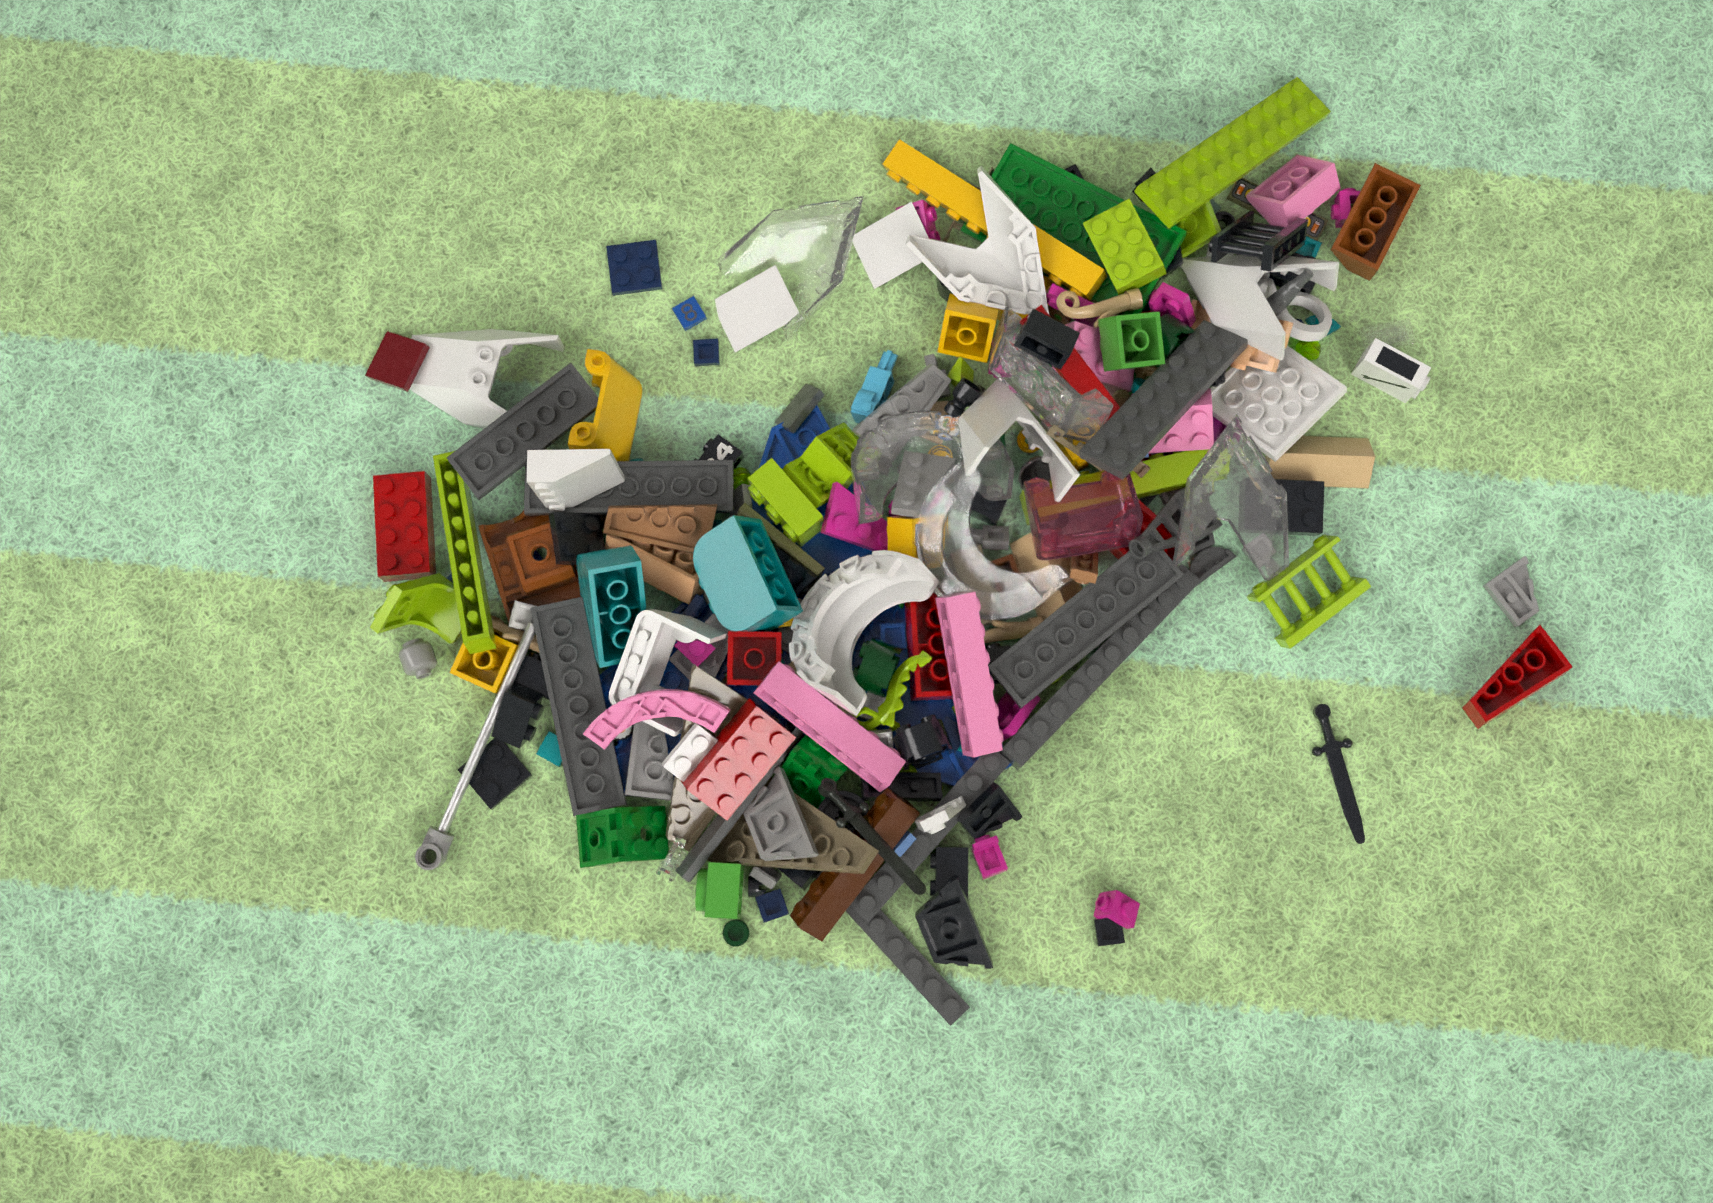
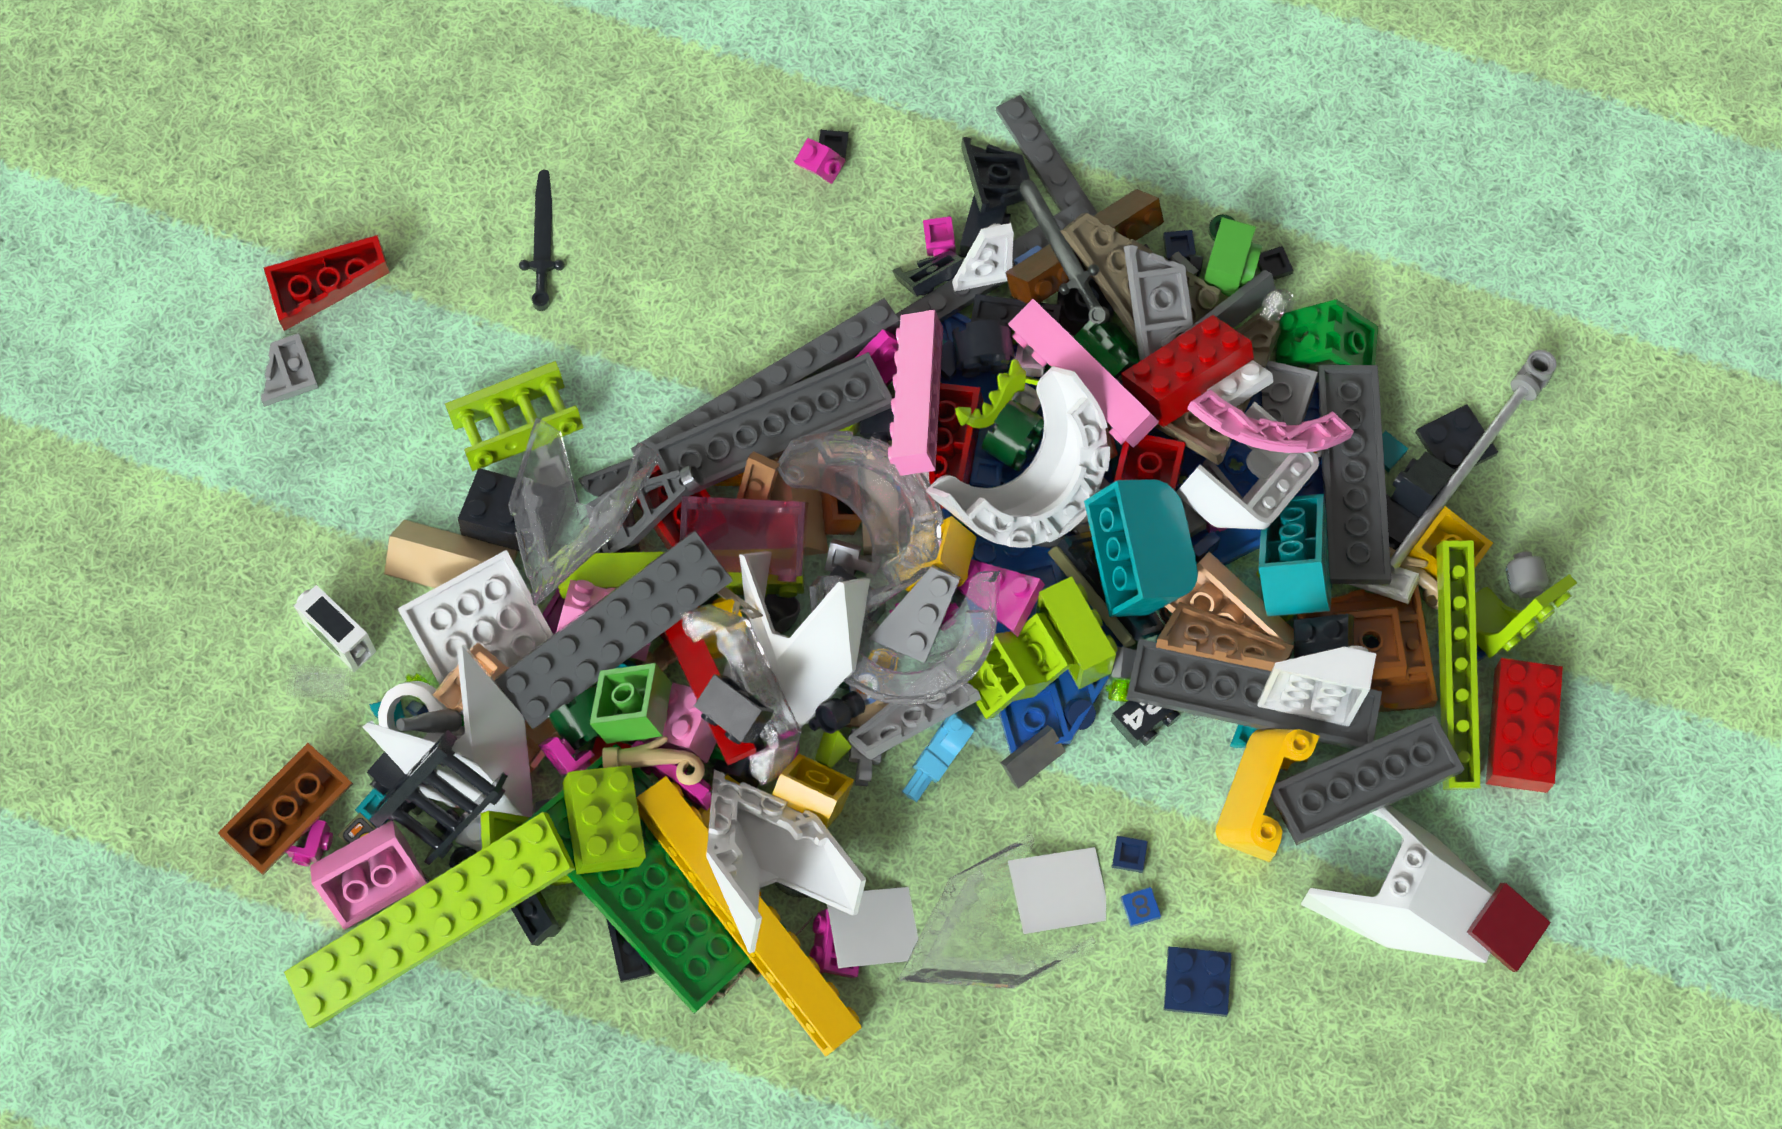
camera: 170 degrees left, 10 degrees down
(682, 908) = (1275, 262): none -> black tile
(774, 452) = (1075, 708): none -> dark blue tile

